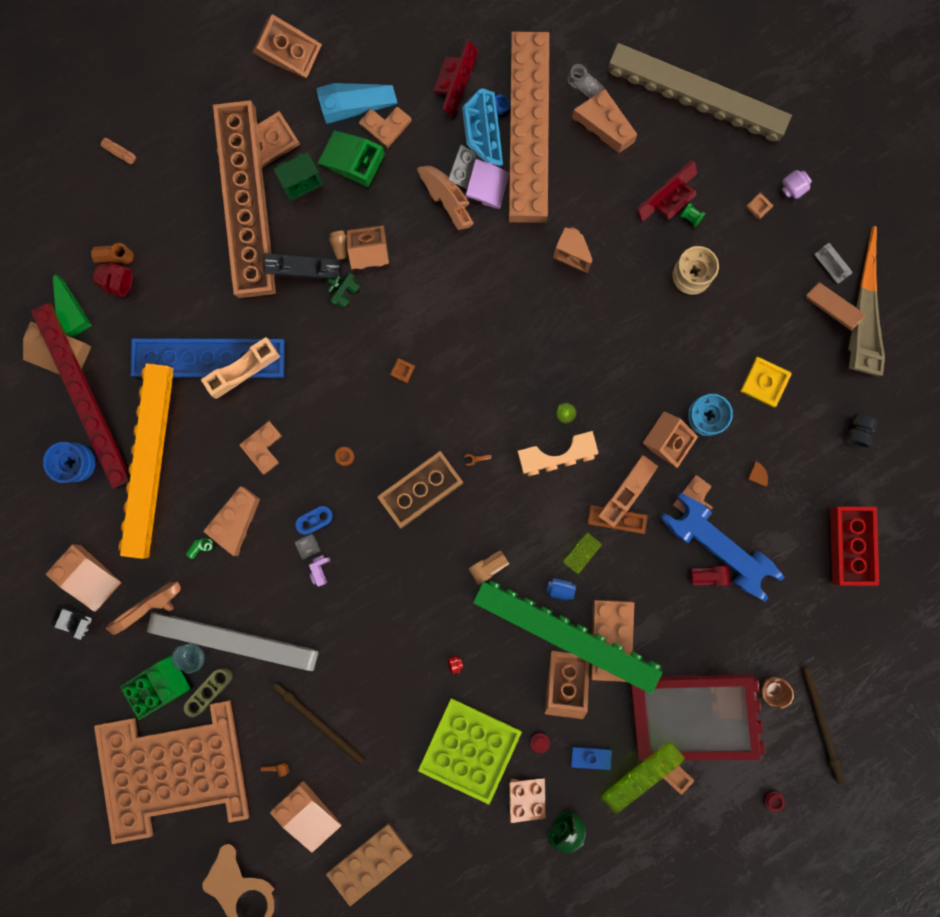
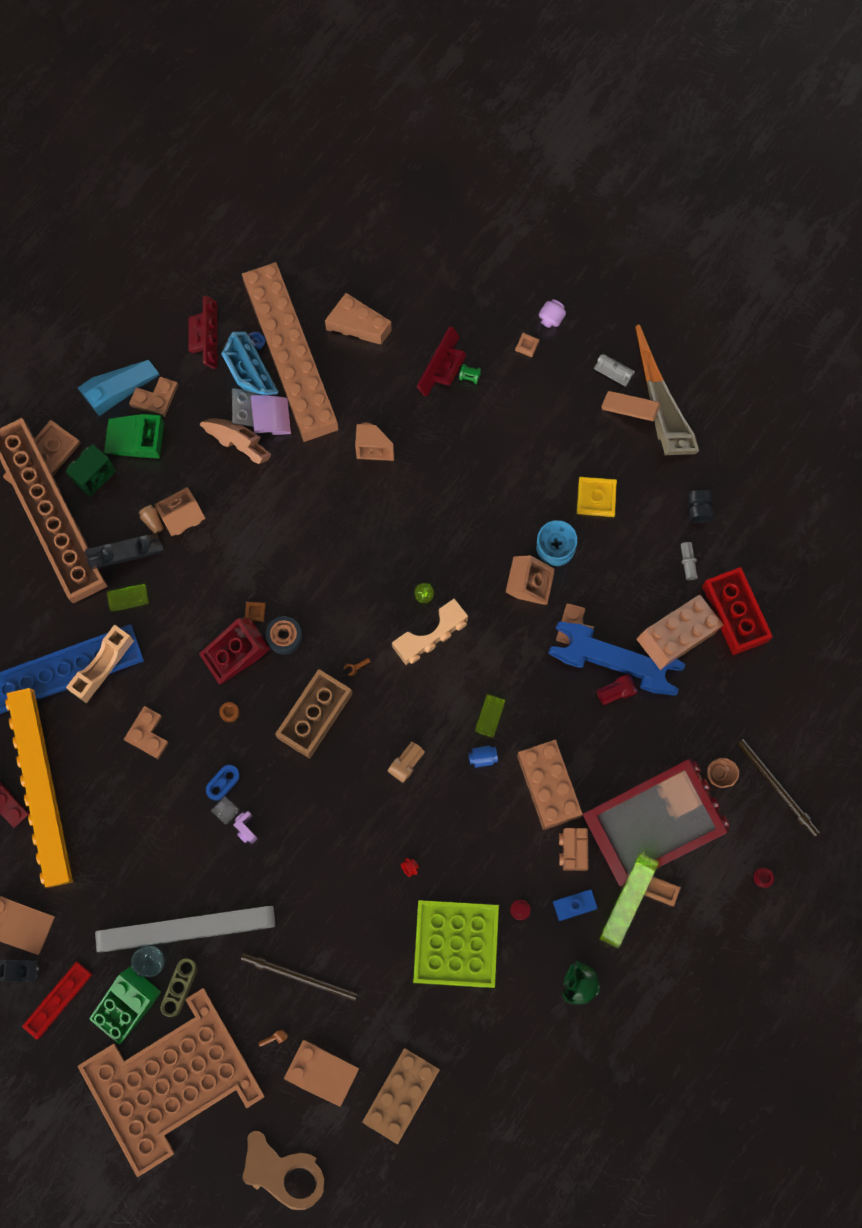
camera: 25 degrees left, 10 degrees down
(97, 659) = (57, 1000): none -> red tile
(158, 599) = (98, 915): nougat animal -> none
(199, 545) = (118, 850): green arm -> none
(233, 520) = (144, 811): nougat wedge -> none
(286, 46) = (36, 360): nougat slope -> none
(290, 311) = (127, 597): none -> clear neon green tile
(338, 297) = (168, 567): dark green hips -> none
(370, 400) = (234, 650): none -> dark red slope
(413, 395) = (280, 625): none -> wheel
(527, 800) = (529, 969): hinge -> none
(567, 686) = (524, 844): nougat slope -> none
(569, 637) = (506, 794): green brick -> none
(586, 83) = (327, 294): clear piece -> none
(611, 708) = (574, 849): none -> nougat brick
(628, 491) = (509, 641): nougat slope -> none
(629, 522) = (510, 672): dark orange tile -> none
(699, 93) = (432, 266): dark tan brick -> none
(700, 262) = (494, 412): tan wheel -> none
(758, 475) = (624, 582): dark orange tile -> none
(792, 546) = (679, 632): none -> nougat brick
(828, 478) = (689, 561): none -> light grey axle

